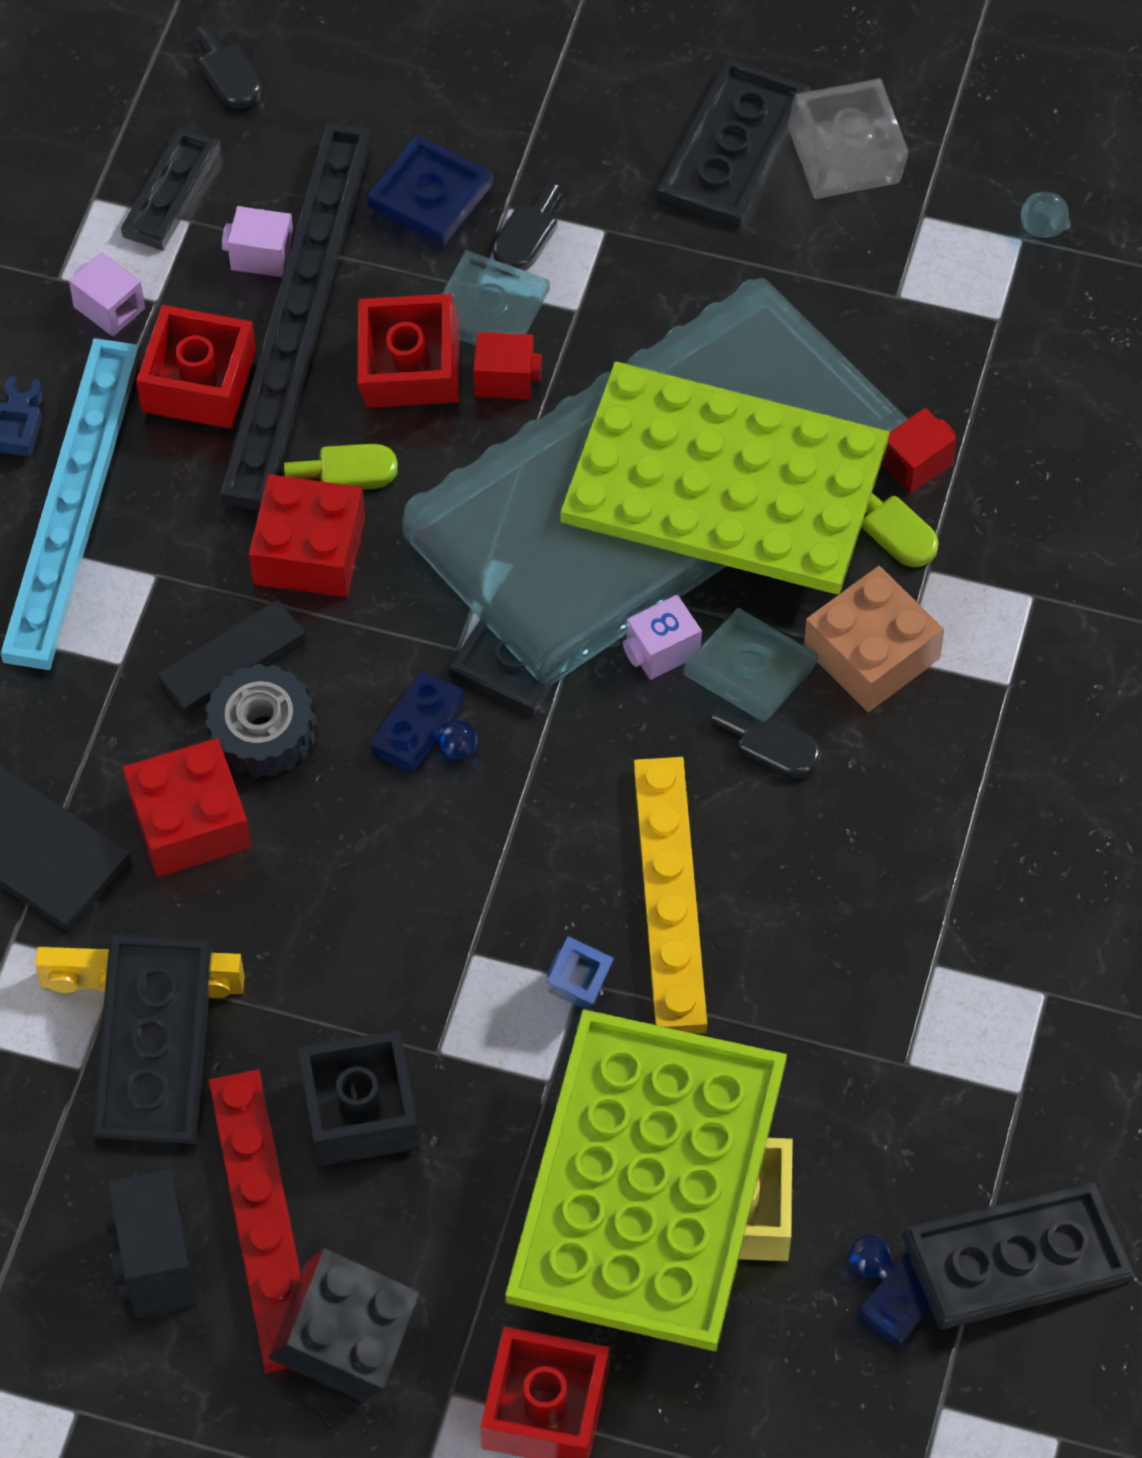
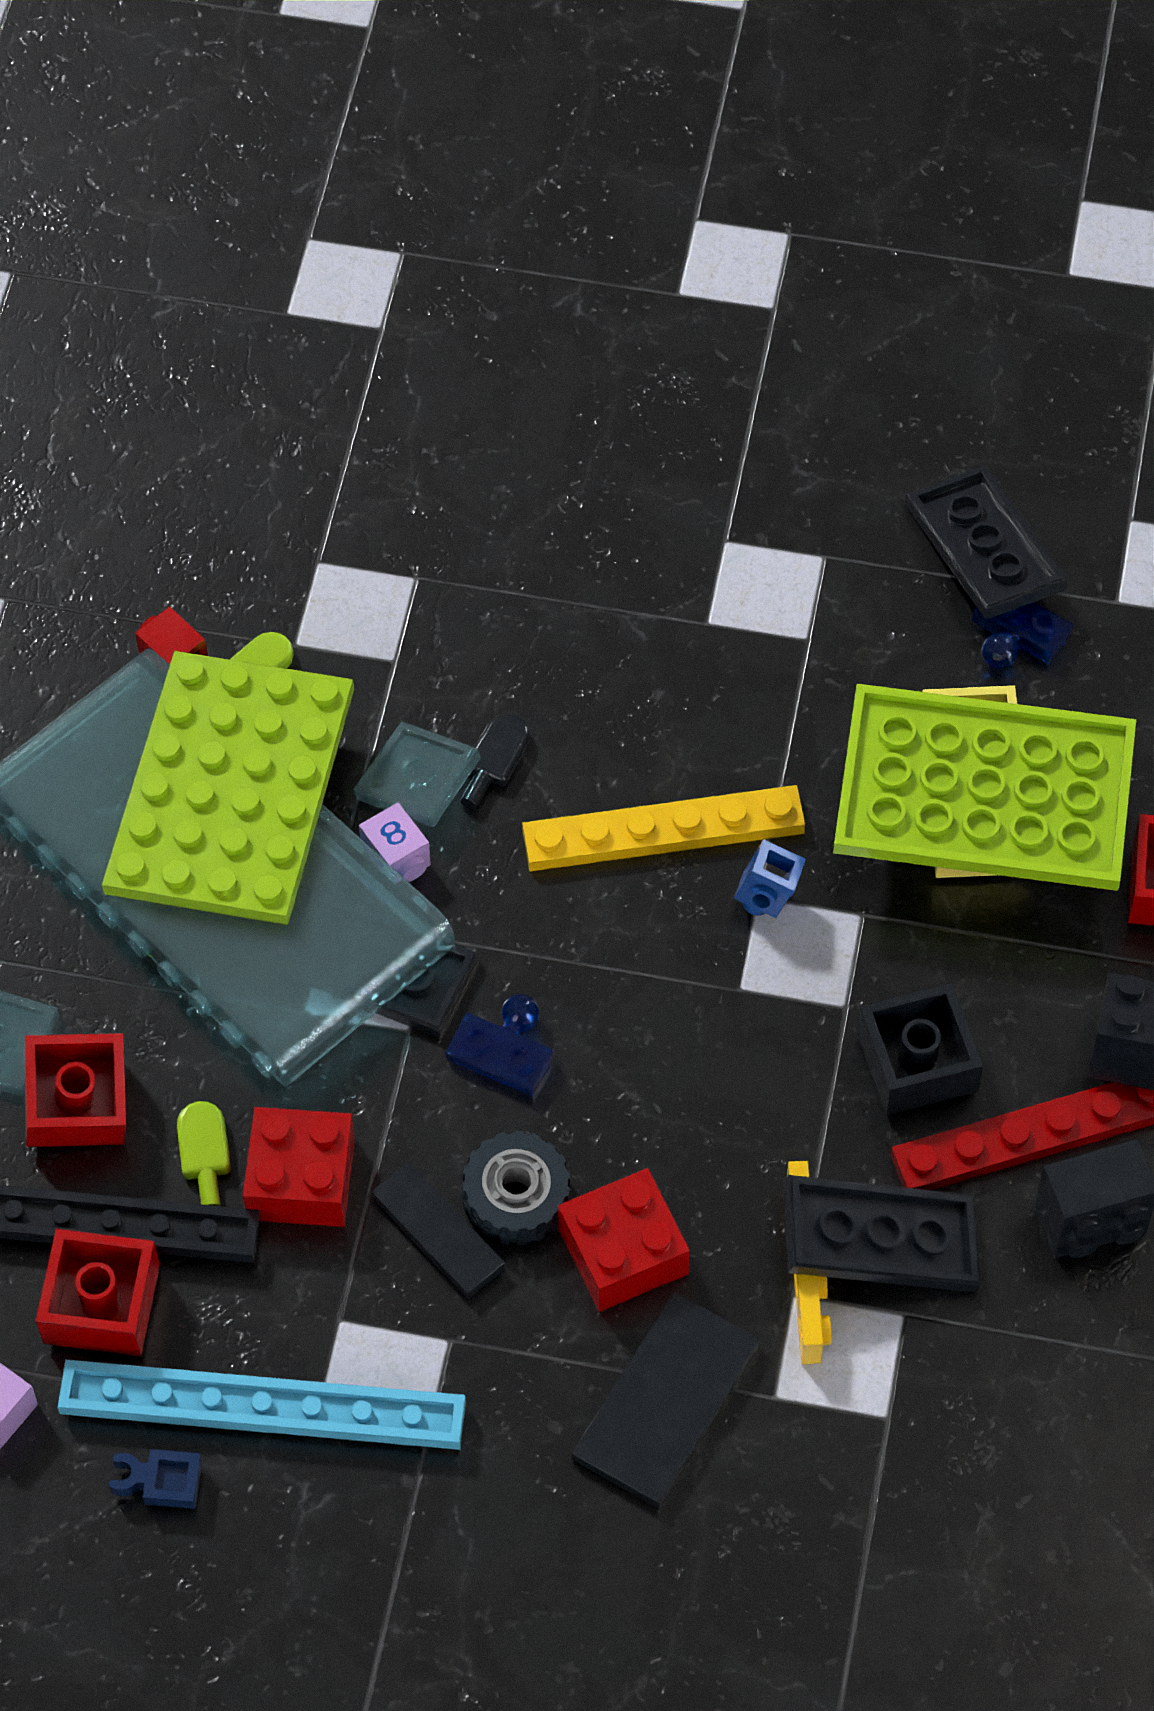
camera: 95 degrees left, 0 degrees up
(505, 365) = (81, 1003): red brick -> none
(874, 638) = (392, 670): nougat brick -> none

